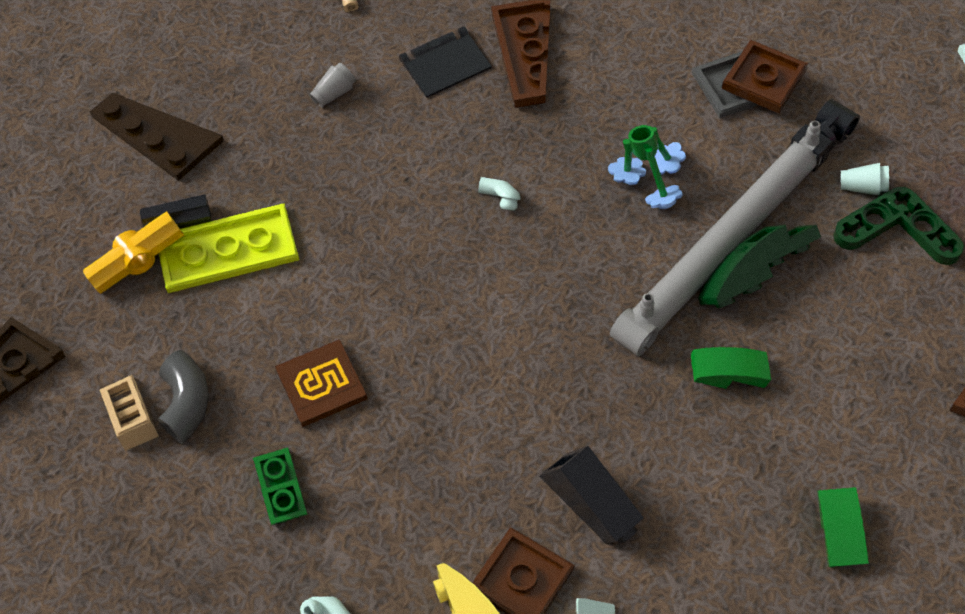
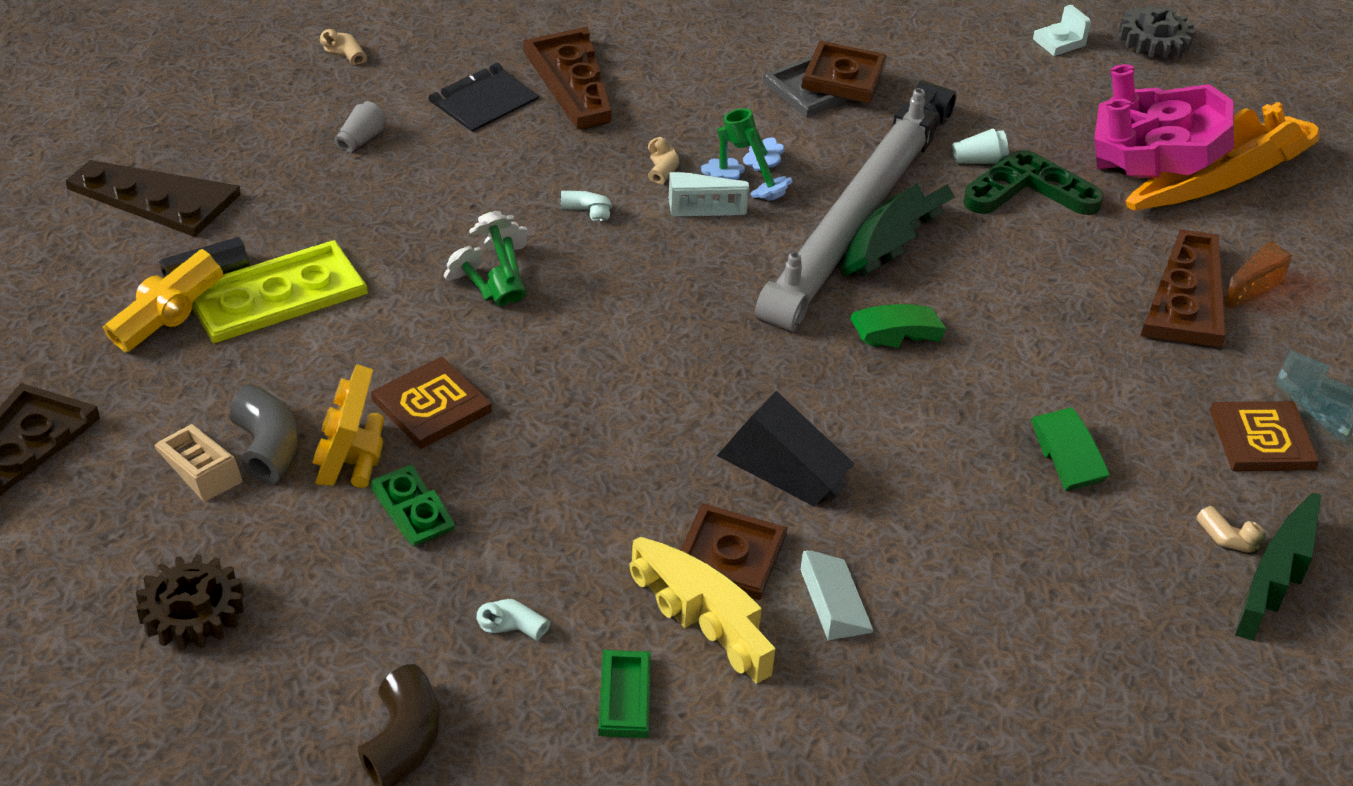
camera: 20 degrees left, 15 degrees down
(71, 553) = (186, 601): none -> dark brown gear
(241, 416) = (345, 439): none -> yellow plate
(407, 271) = (504, 237): none -> plant
(580, 153) = (664, 159): none -> tan arm
(599, 200) = (695, 184): none -> light aqua slope

